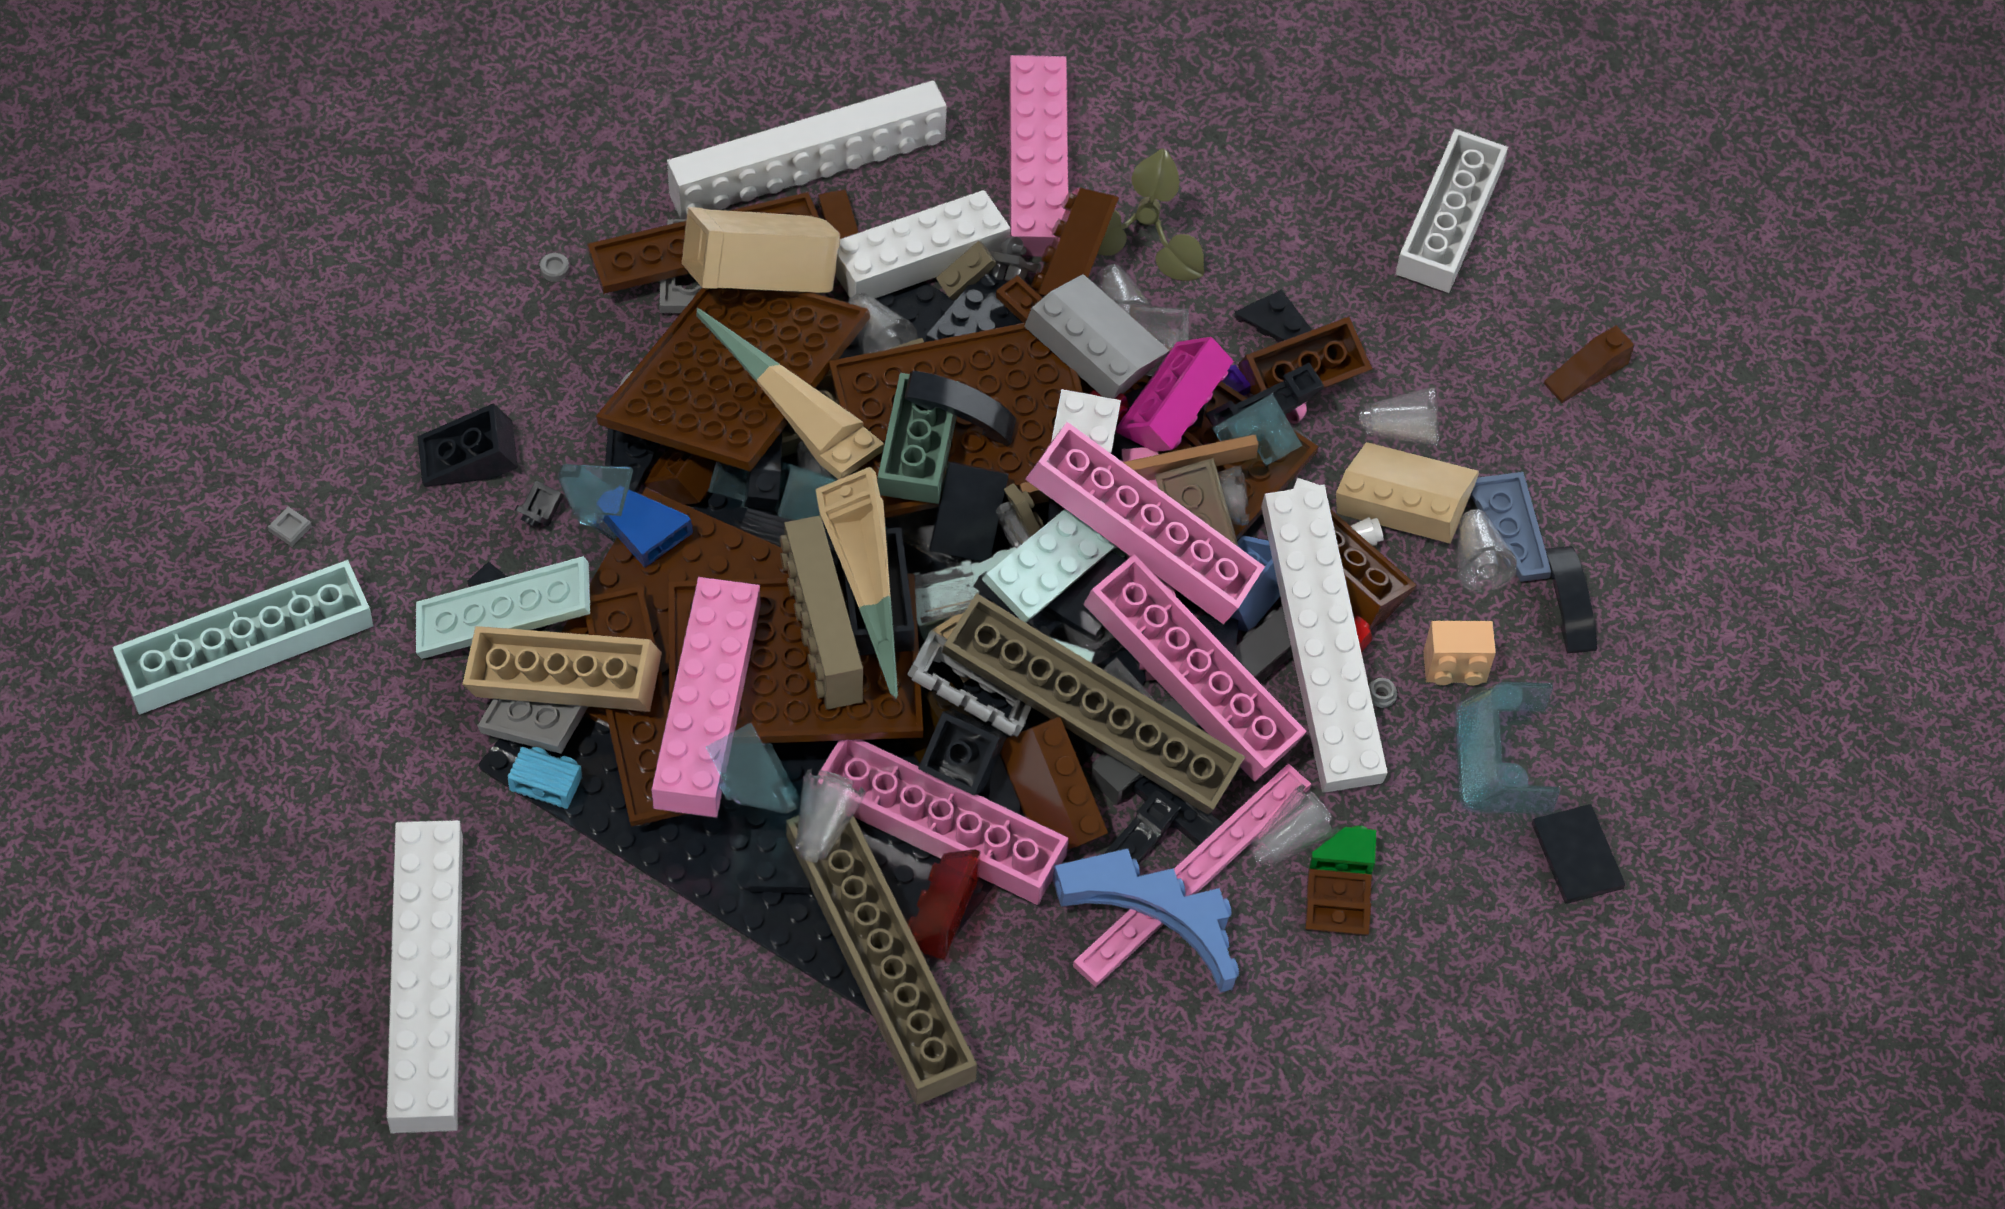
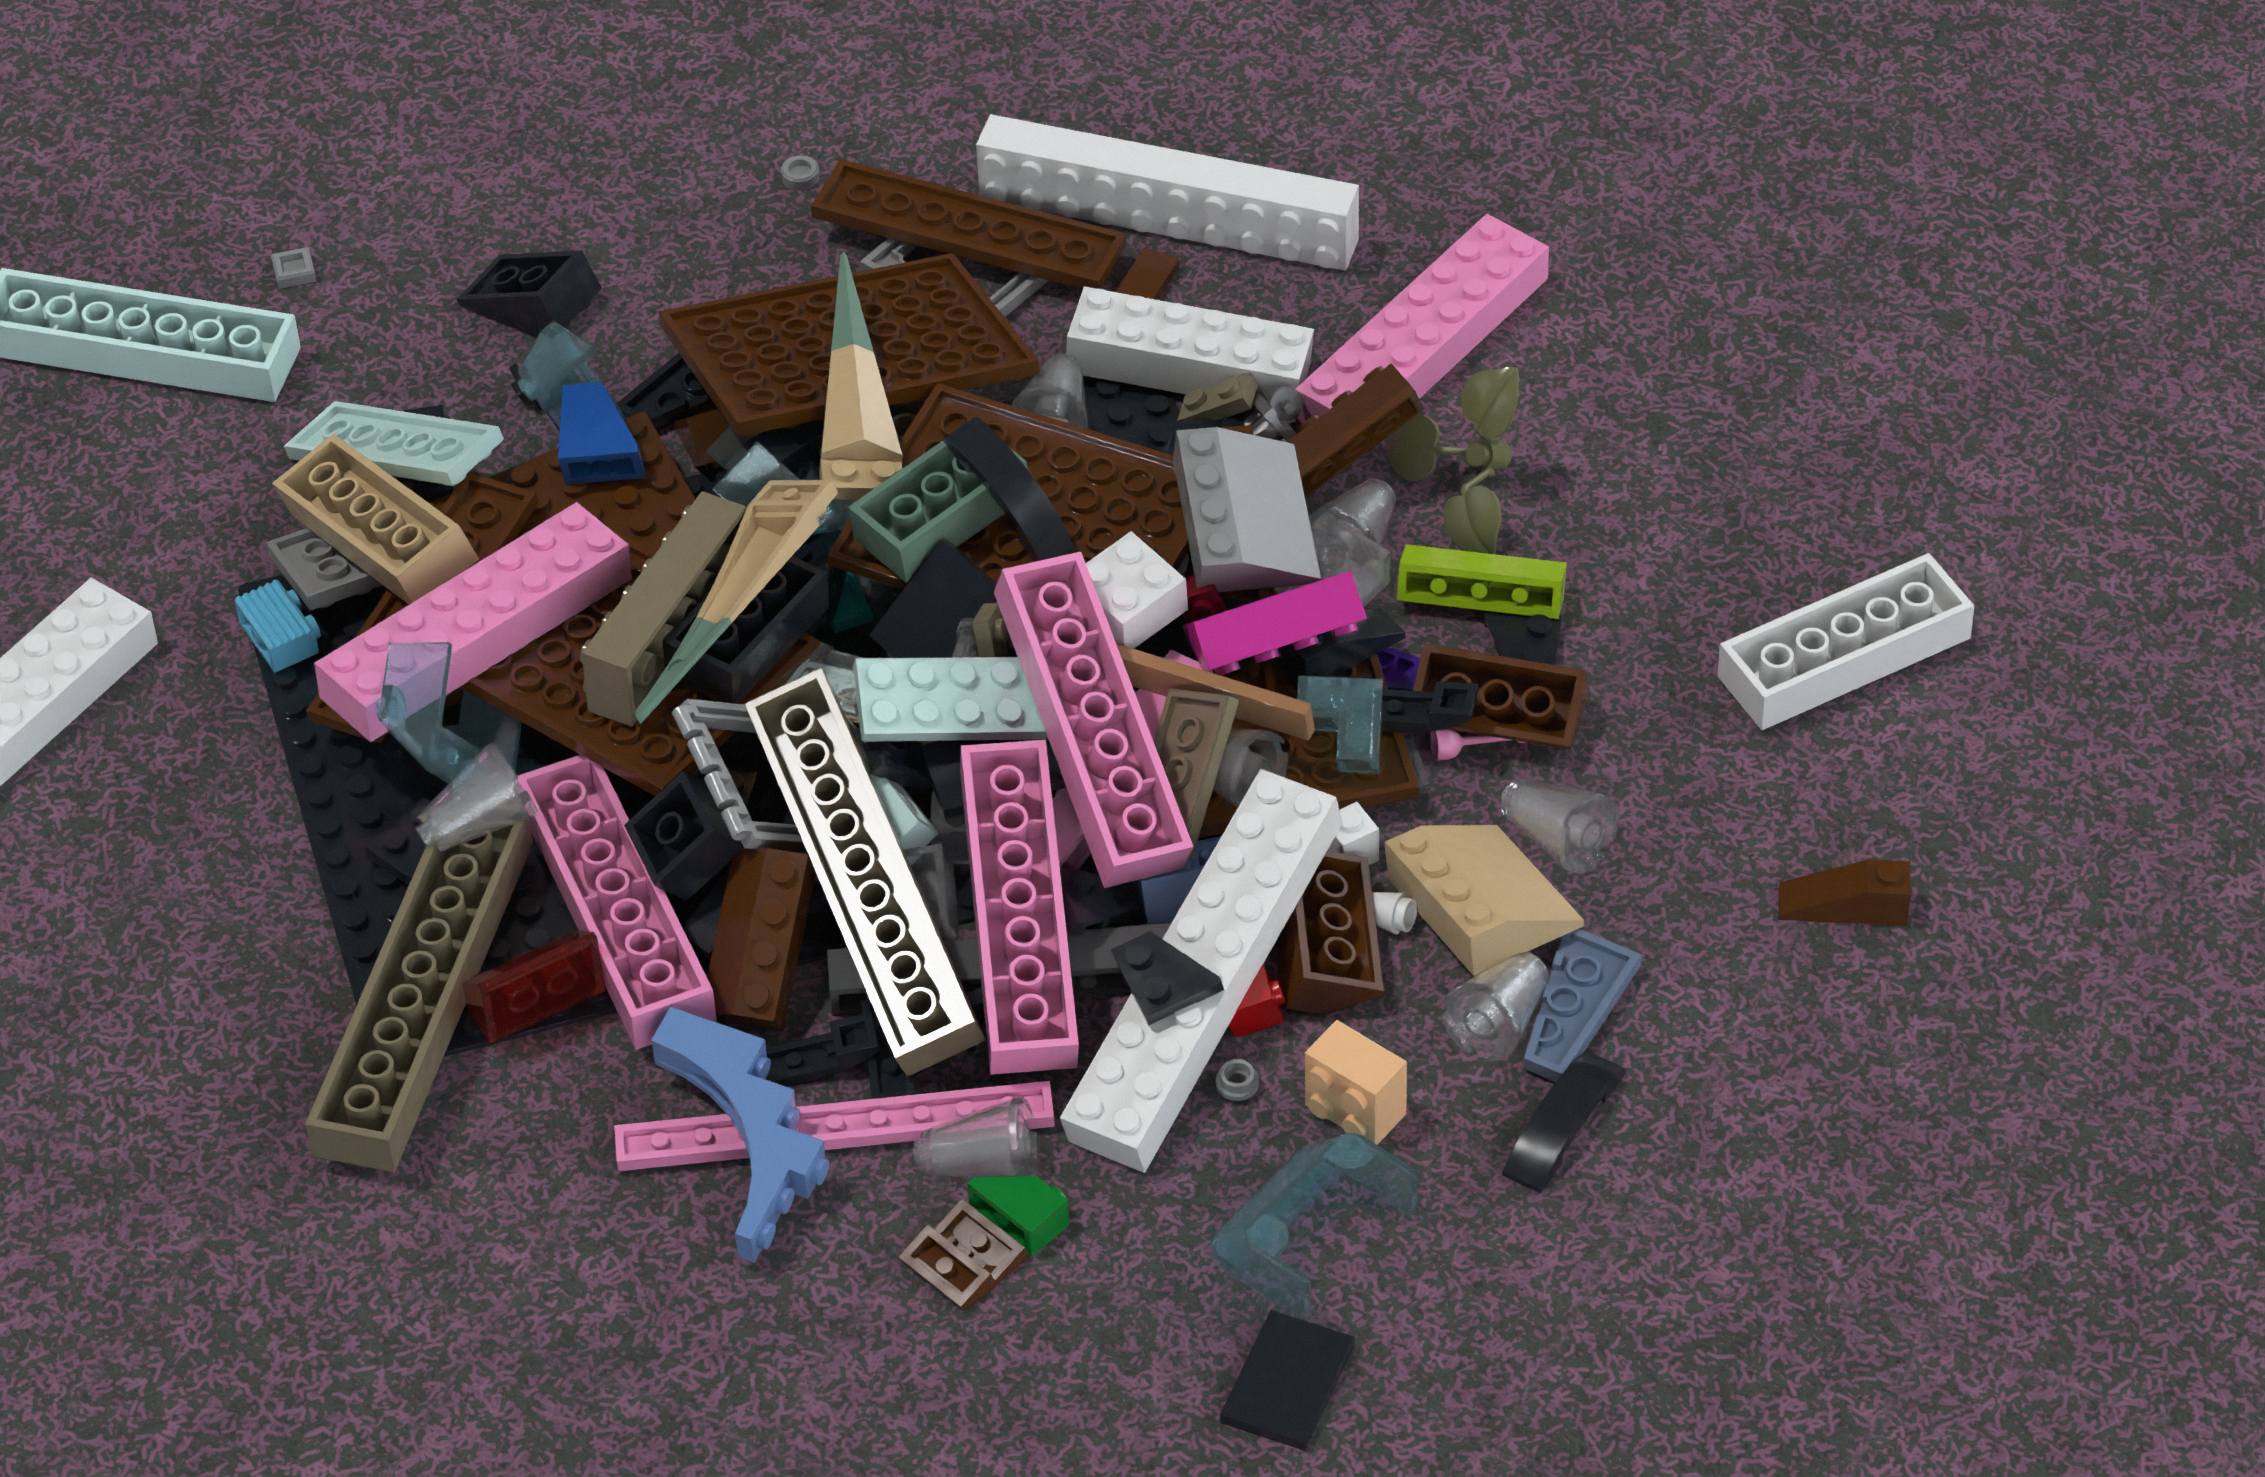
camera: 45 degrees right, 10 degrees down
(760, 251) = (989, 248): tan piece -> none
(1228, 292) = (1481, 581): none -> lime brick
(1321, 658) = (1163, 976): none -> black wing

